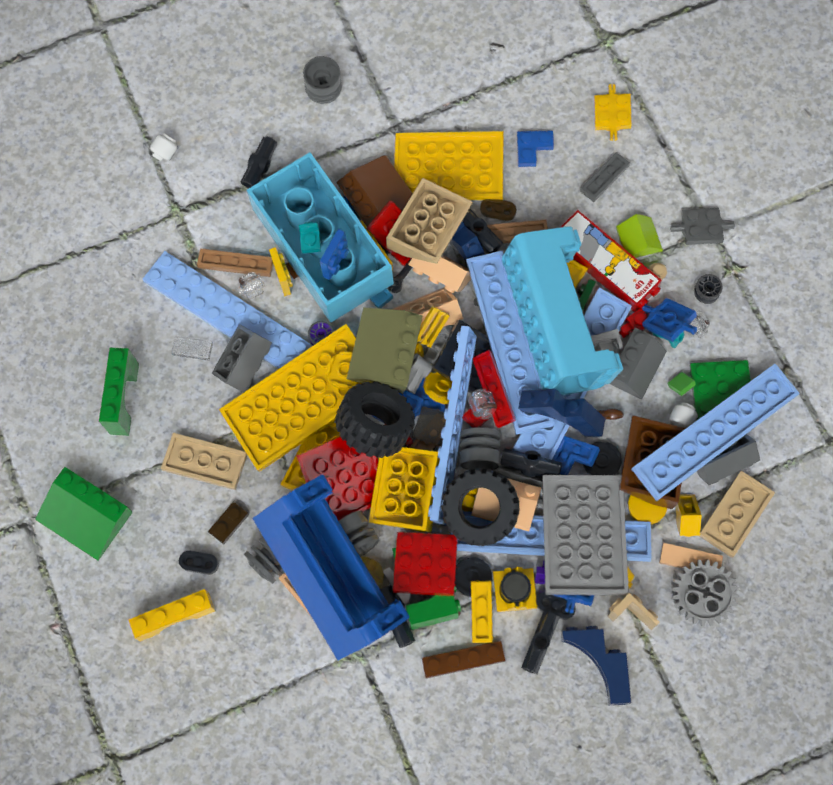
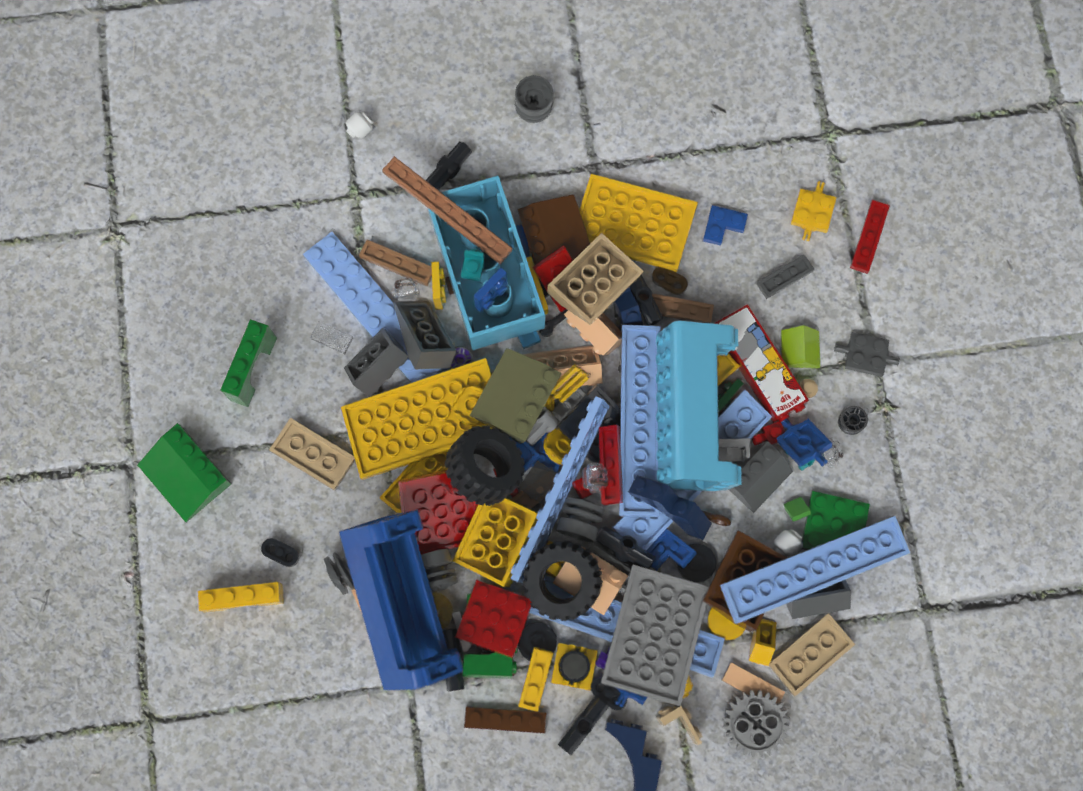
camera: 10 degrees right, 5 degrees up
(228, 523) = (319, 521): dark brown plate -> none
(271, 195) = (447, 210): none -> nougat tile
(281, 320) = (424, 335): none -> dark grey slope
(672, 120) = (869, 236): none -> red plate

